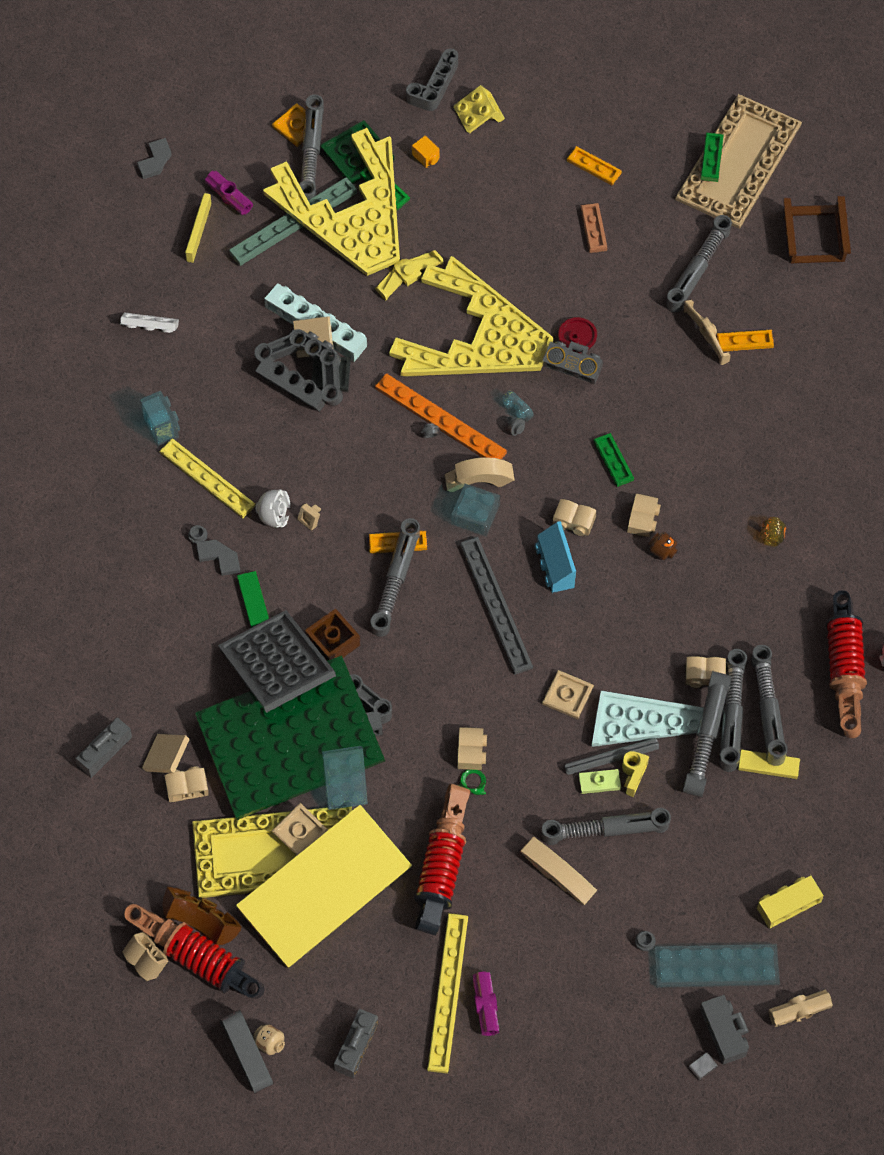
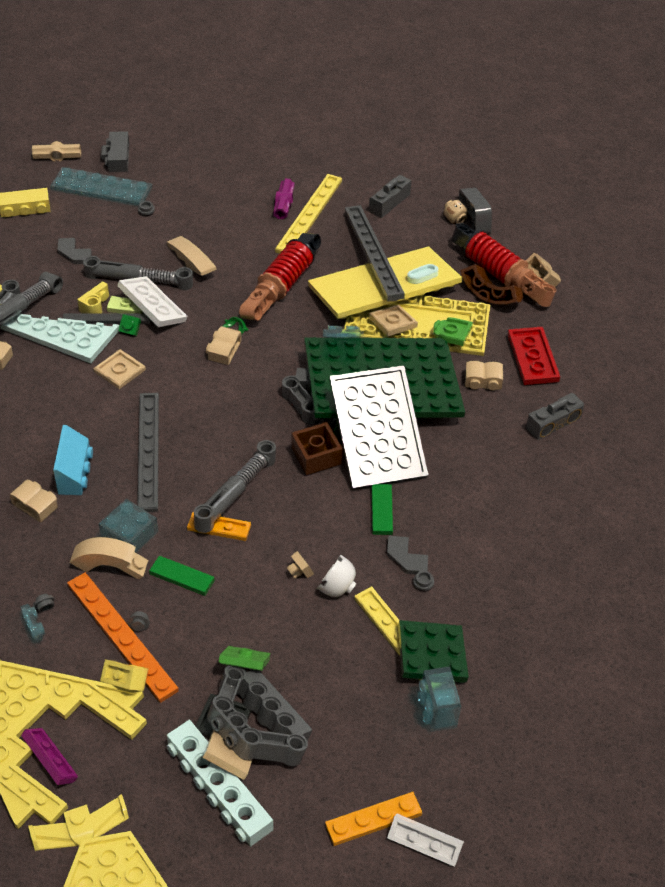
camera: 165 degrees left, 15 degrees down
(138, 831) = (533, 355): none -> red plate
(165, 753) = (498, 397): tan tile -> none
(175, 466) = (431, 647): none -> dark green plate
(192, 331) = (372, 818): none -> light orange plate
(231, 833) = (452, 330): none -> bright green tile
(281, 896) = (422, 274): none -> light aqua tile
(328, 415) = (244, 658): none -> bright green plate
(349, 924) = (374, 254): none -> dark grey plate
(412, 485) = (182, 575): none -> green tile
(420, 376) = (124, 675): none -> light yellow plate
(451, 309) = (49, 756): none -> magenta tile
(570, 782) = (152, 301): none -> white plate
(581, 749) = (129, 325): none -> green plate
(690, 840) = (67, 247): none -> dark grey tile
(703, 1066) = (143, 142): flat silver piece -> none

